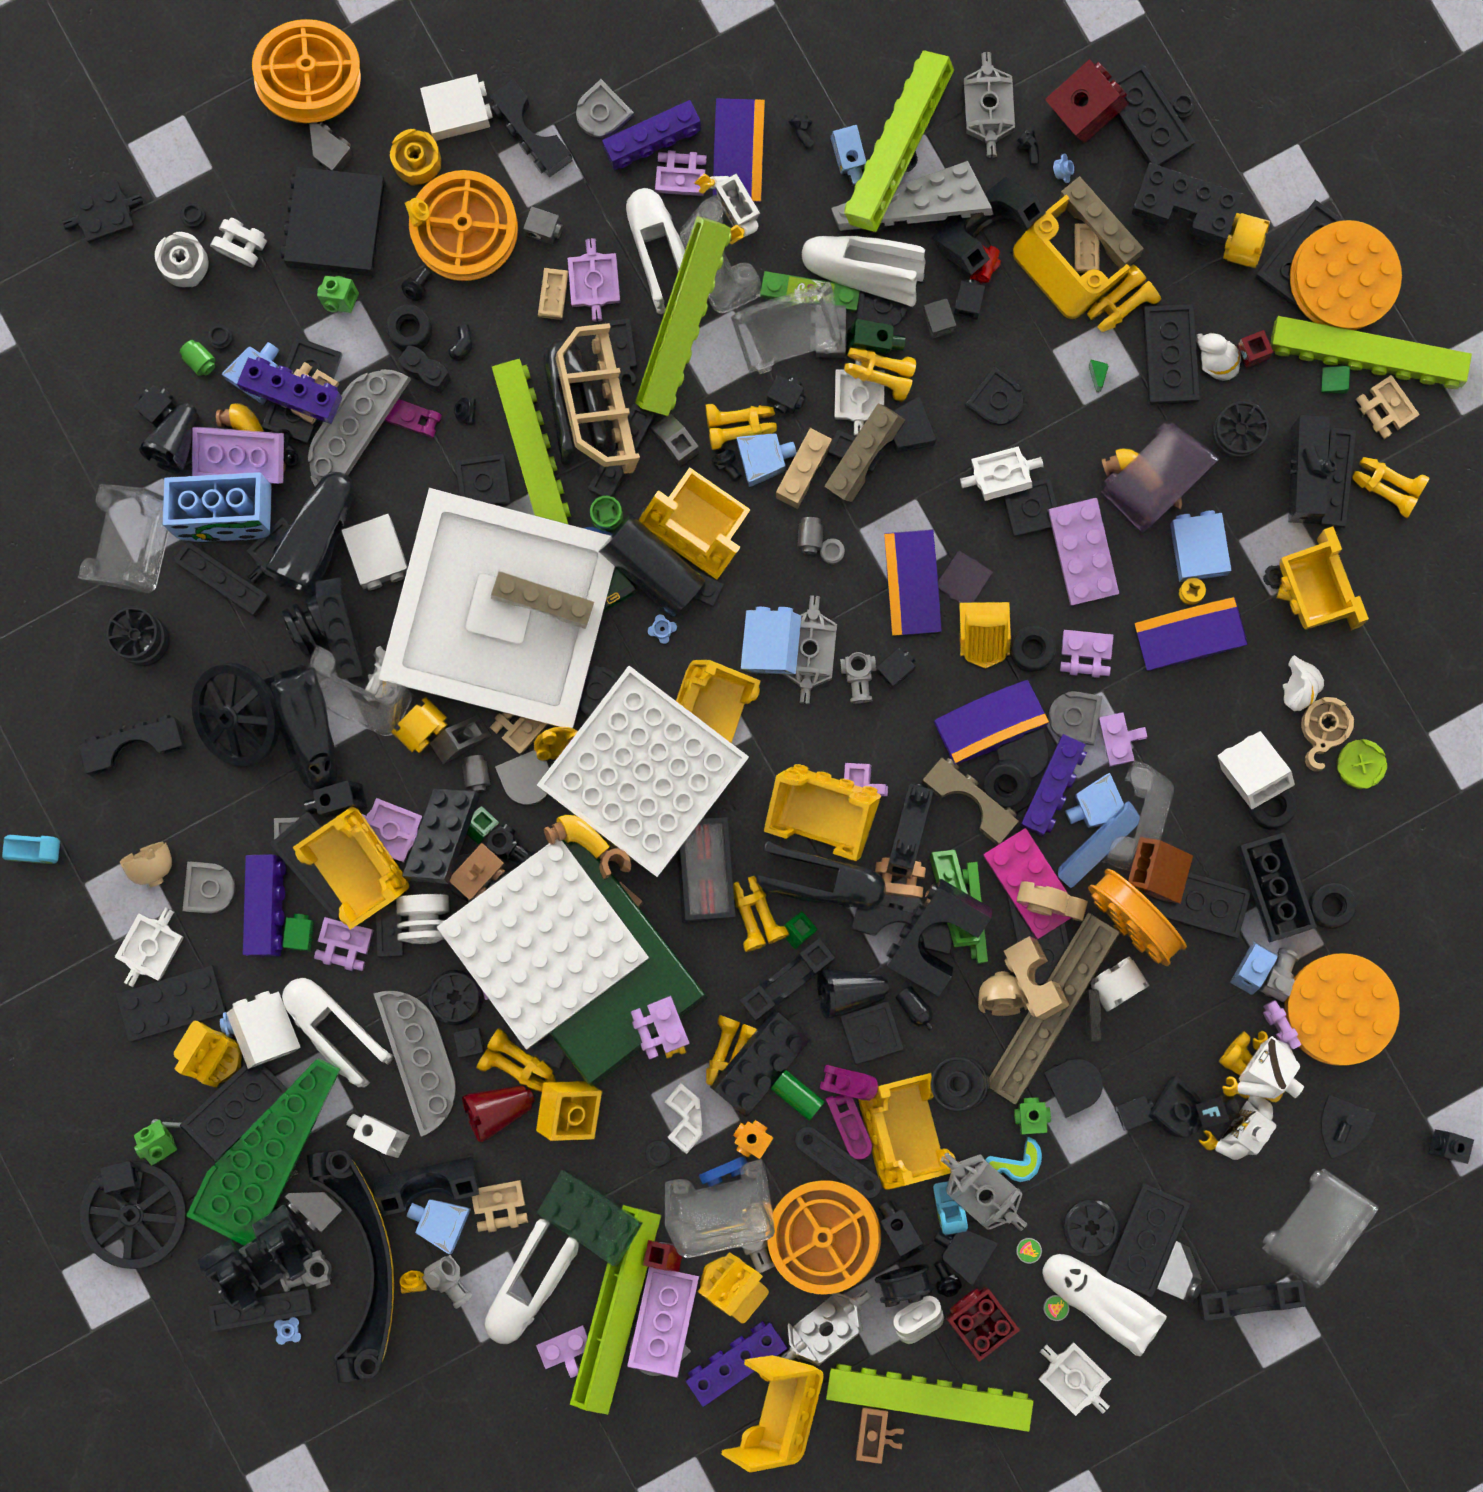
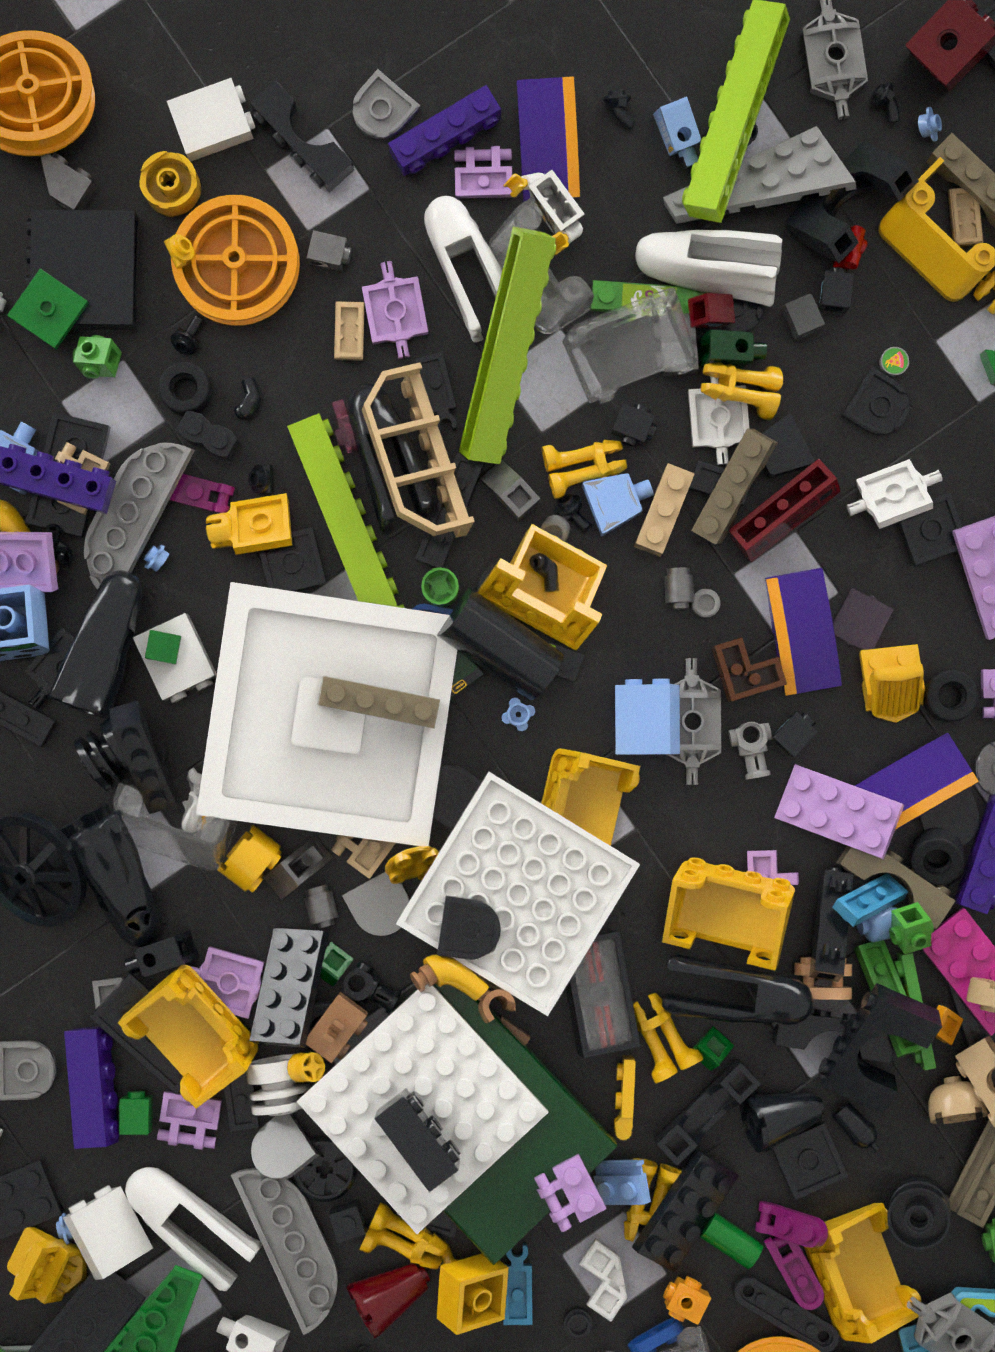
camera: 15 degrees left, 5 degrees up
(301, 250) = (48, 309): none -> green plate
(366, 539) = (163, 647): none -> green slope
(368, 466) = (155, 557): none -> light blue plate
(420, 974) = (282, 1148): none -> light grey tile
(452, 446) = (252, 525): none -> yellow plate
(452, 896) = (311, 1072): none -> yellow wheel
(535, 961) = (418, 1139): none -> black brick
(539, 379) = (344, 434): none -> clear pink plate
(596, 794) = (467, 928): none -> black tile
(609, 1117) = (519, 1290): none -> dark azure plate
(699, 508) = (547, 569): none -> black arm
(707, 1032) = (622, 1182): none -> light blue plate
(711, 473) = (556, 526): none -> light grey tile
(718, 963) = (625, 1099): none -> yellow hinge
(857, 616) = (742, 678): none -> reddish brown brick
(860, 304) = (711, 310): none -> dark red brick
(906, 478) = (785, 510): none -> dark red brick
(926, 735) = (839, 811): none -> lavender plate
(944, 811) = (870, 899): none -> dark azure plate
(952, 834) = (877, 927): none -> light blue head
(976, 838) = (911, 928): none -> bright green brick
(999, 926) = (950, 1025): none -> light orange plate
(1014, 363) = (894, 361): none -> tile

